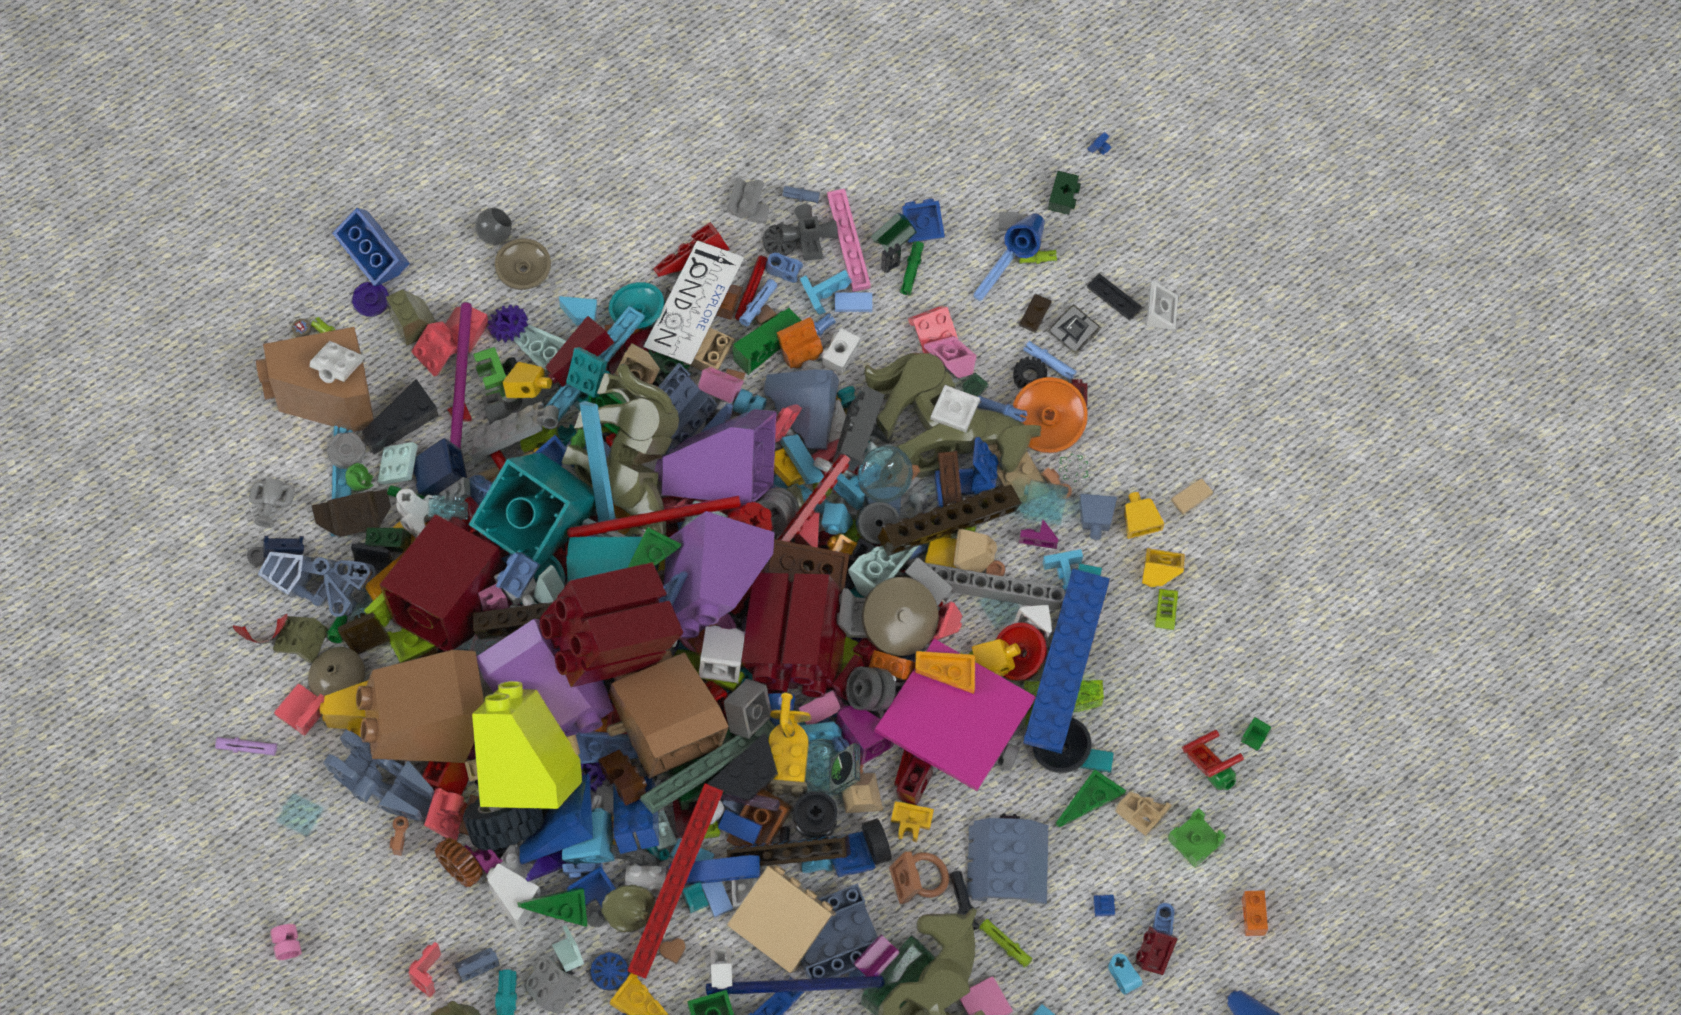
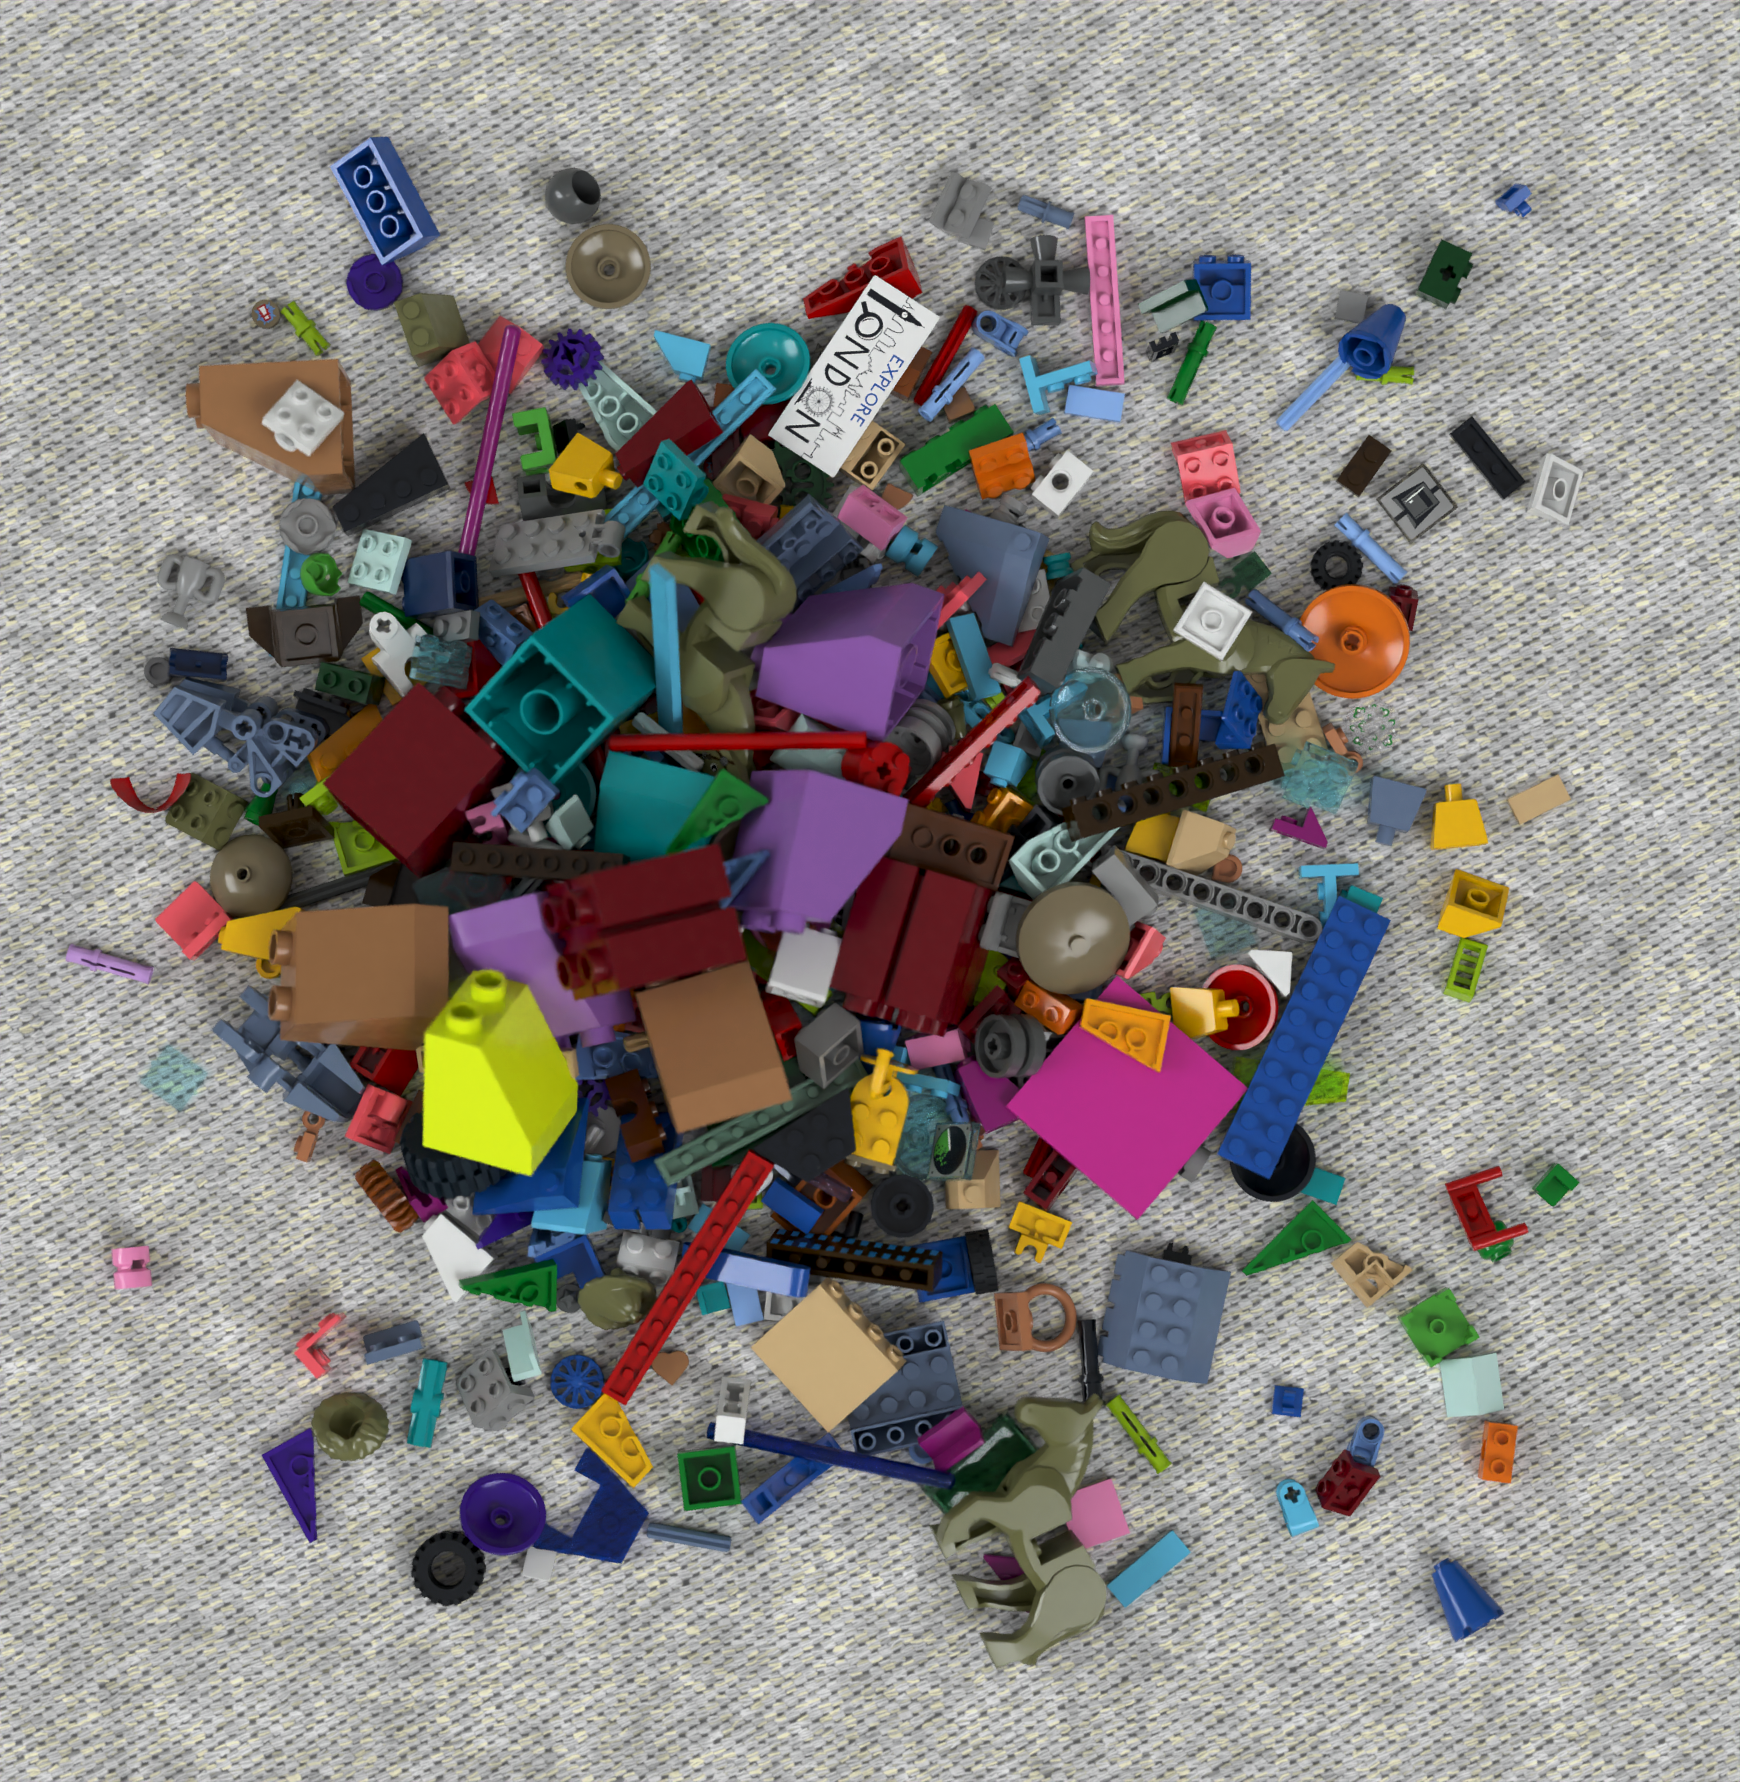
camera: 10 degrees right, 20 degrees up
(1227, 874) = (1471, 1385): none -> light aqua slope

